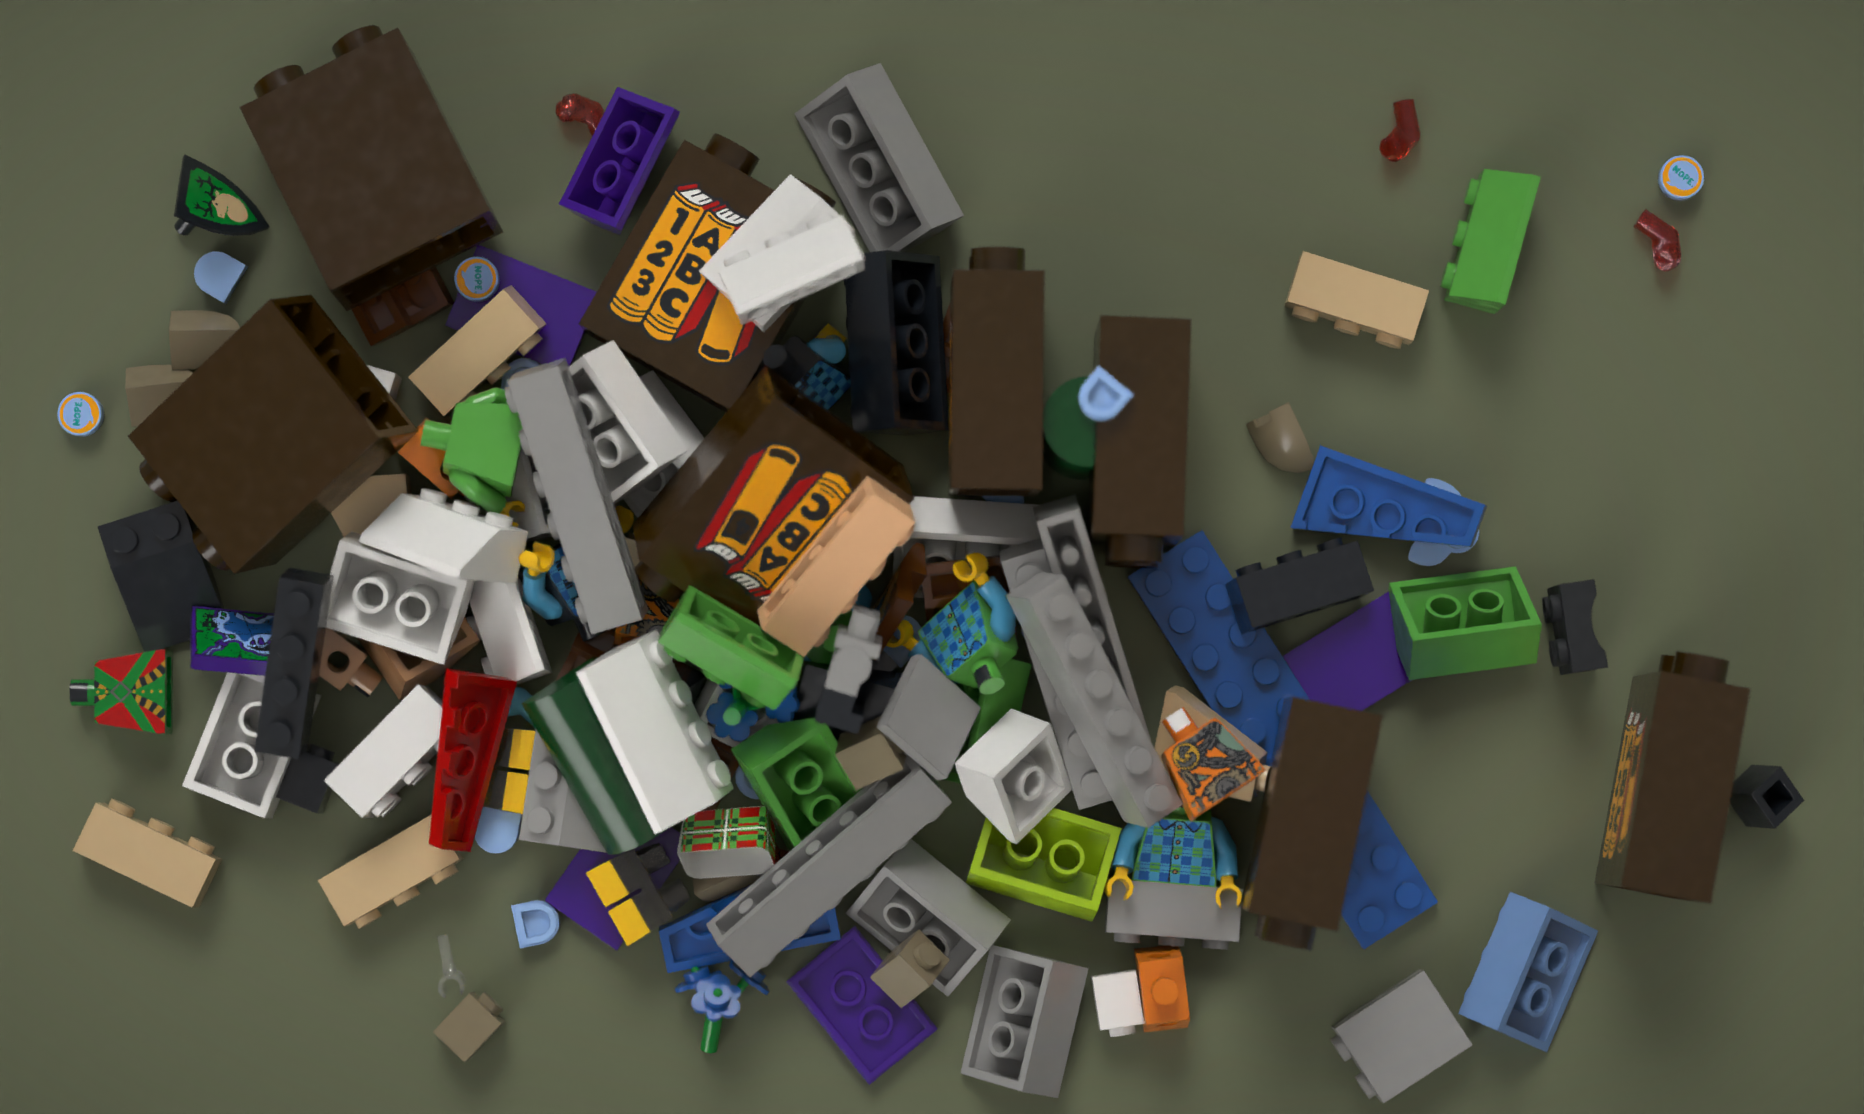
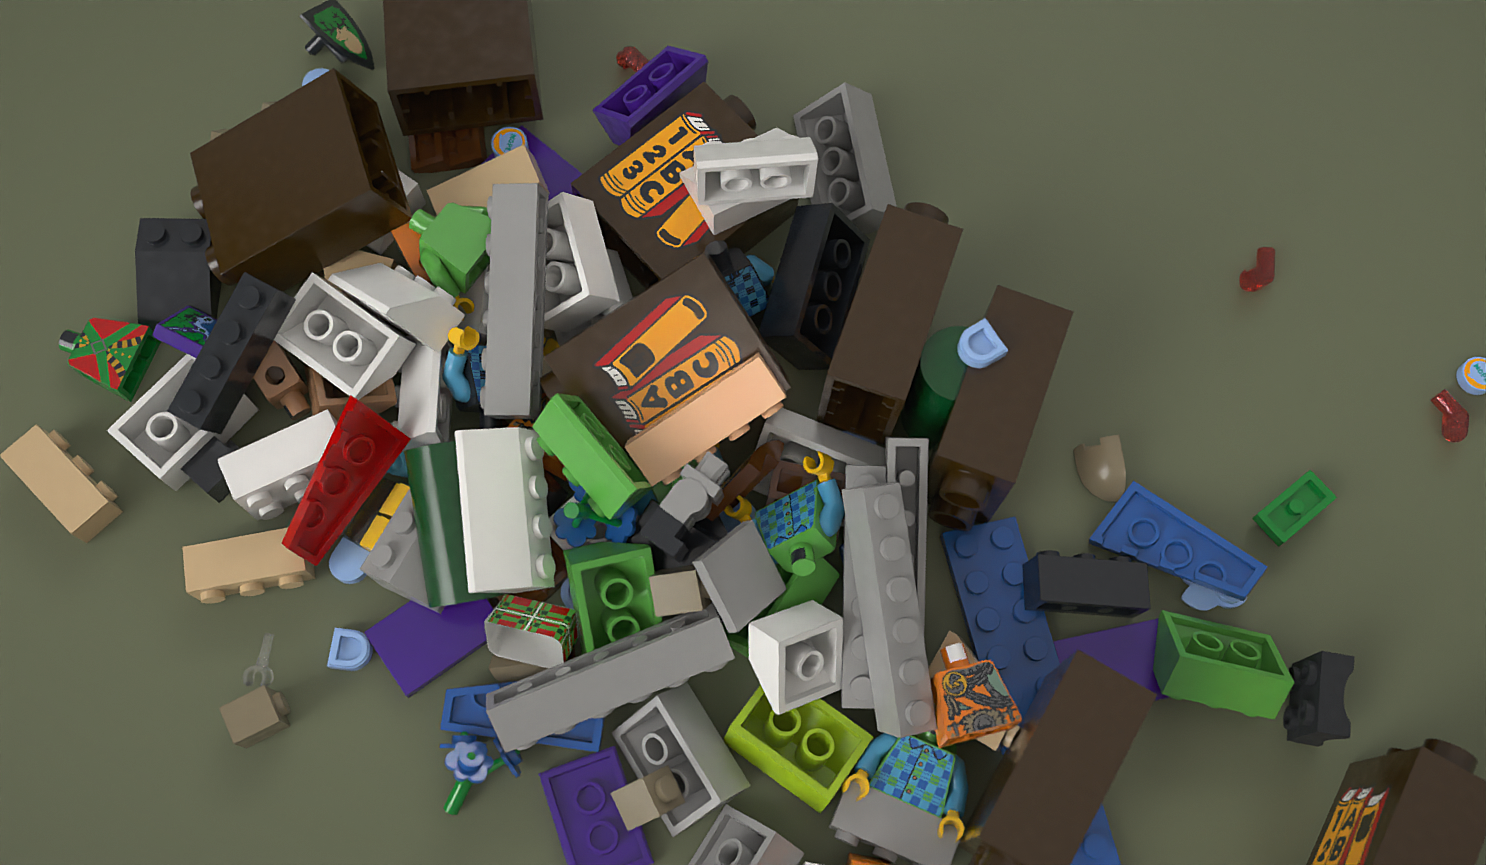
camera: 15 degrees right, 15 degrees down
(80, 414) = (174, 148): light blue tile -> none
(650, 907) = (436, 648): clear smoke hips -> none
(1355, 300) = (1193, 379): tan brick -> none
(1490, 239) = (1317, 366): bright green slope -> none
(1506, 413) = (1294, 508): none -> green plate

